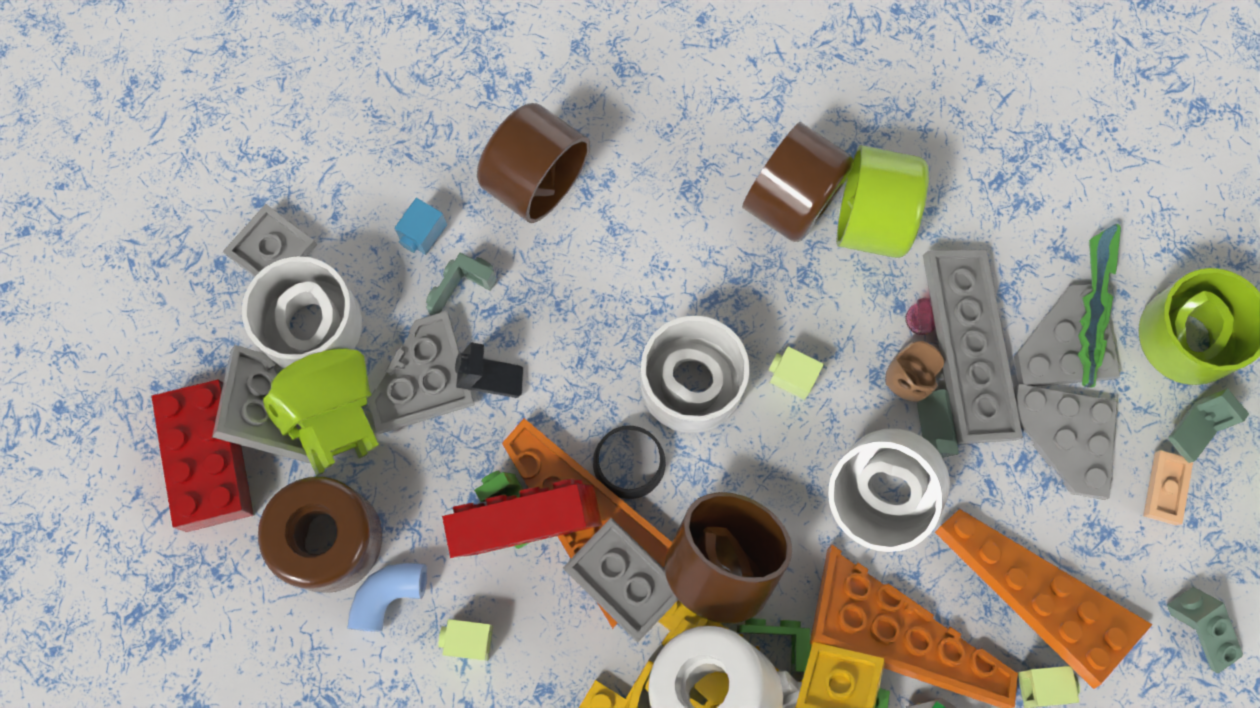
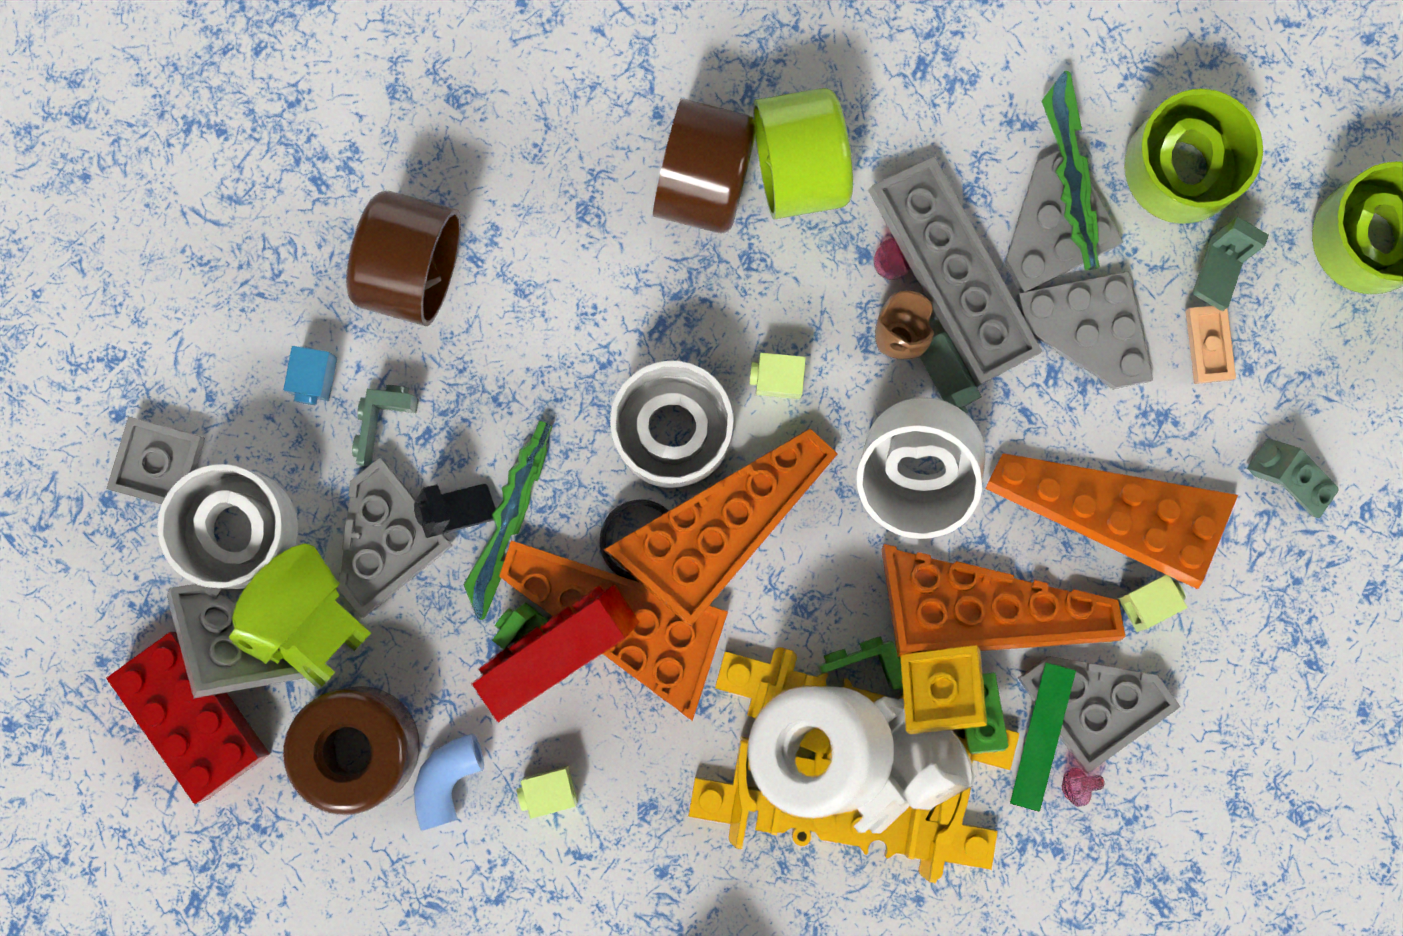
camera: 20 degrees left, 10 degrees up
(529, 399) = (508, 517): none -> bright green sword
(622, 579) = (684, 667): light grey tile -> none
(665, 478) = (708, 538): none -> orange wing
(739, 536) = (788, 577): reddish brown piece -> none

